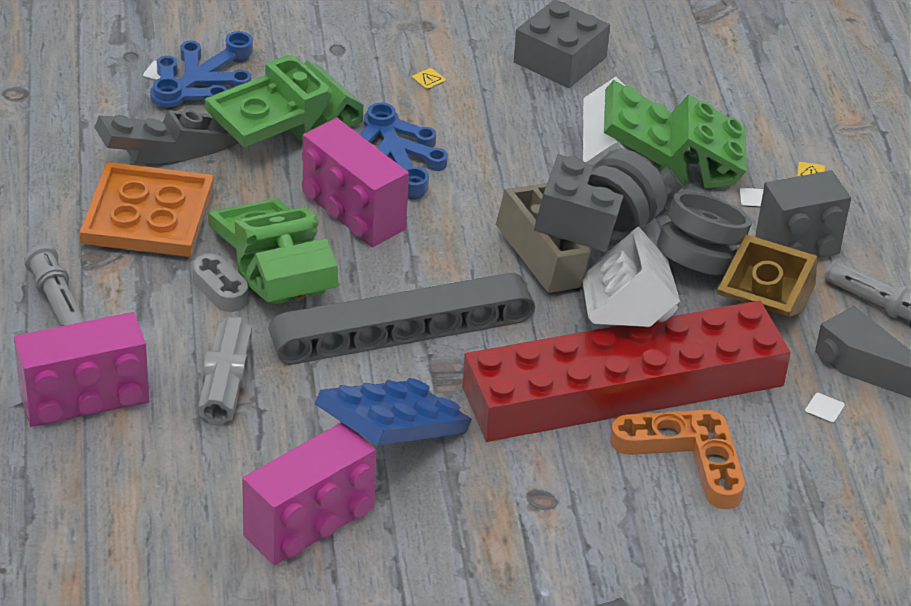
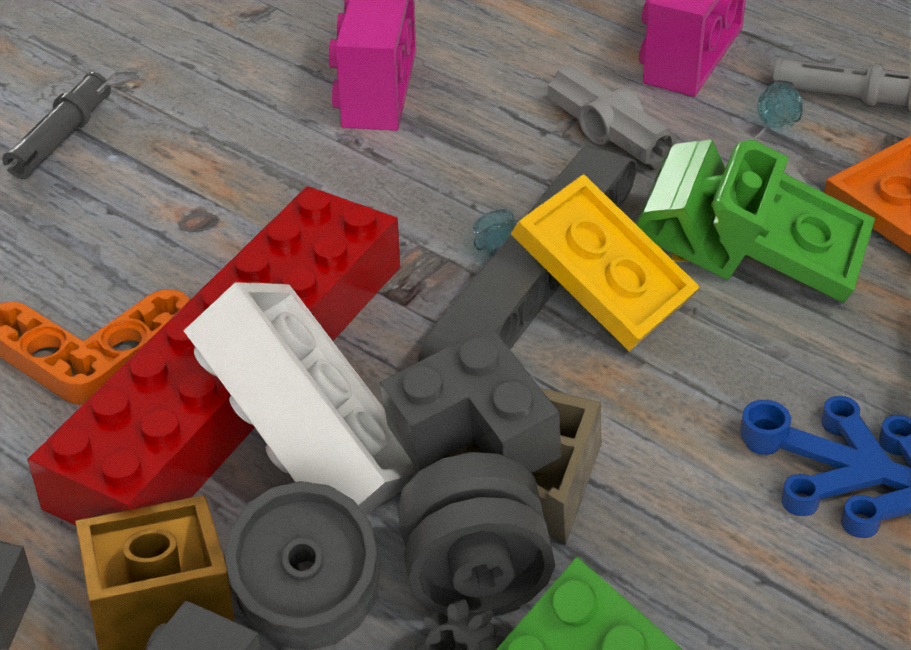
camera: 140 degrees right, 0 degrees up
(119, 304) = (780, 105): none -> clear light blue plate
(355, 182) = (792, 326): dark pink brick -> none
(385, 271) = (605, 261): none -> yellow plate
(393, 411) = (389, 124): blue plate -> none
(400, 339) = (493, 230): none -> clear light blue plate

